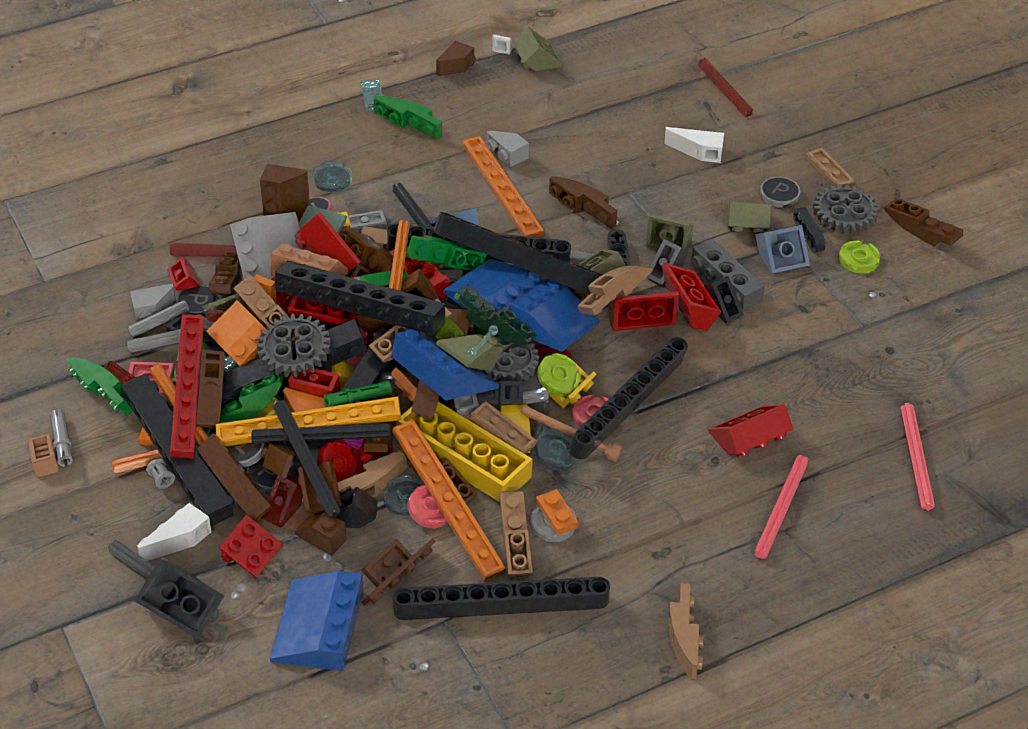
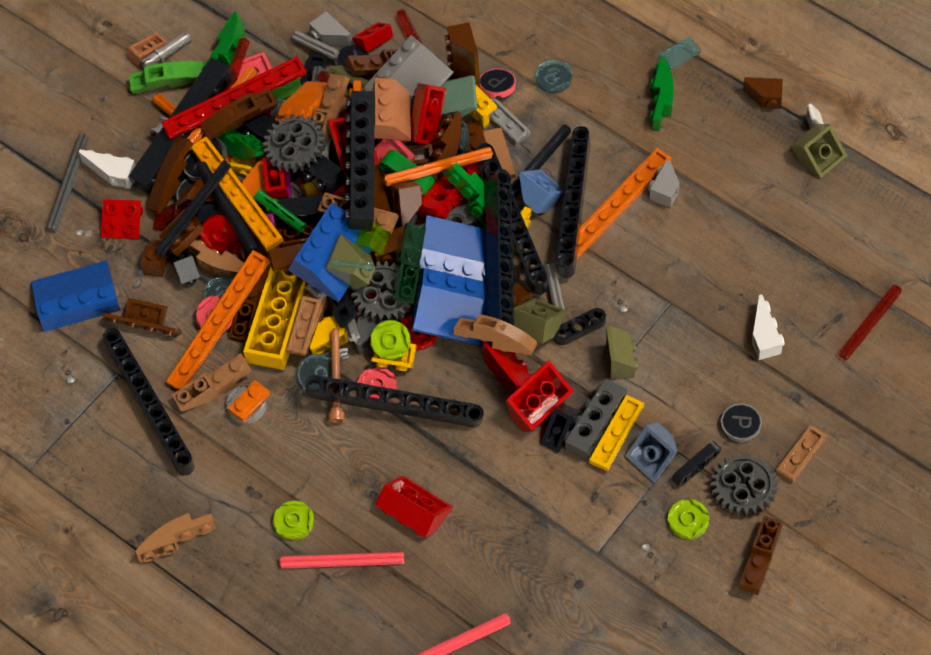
camera: 70 degrees right, 15 degrees up
(95, 445) = (164, 74): none -> bright green slope
(154, 341) = (287, 52): light grey axle -> none
(179, 597) = (47, 196): black slope -> none
(487, 204) = (573, 202): none -> black beam
(581, 196) = (630, 272): reddish brown slope -> none
(667, 253) = (585, 367): flat silver slope -> none
(714, 529) = (293, 520): none -> lime tile
(748, 215) = (685, 407): olive slope -> none
(769, 280) = (616, 433): none -> yellow plate

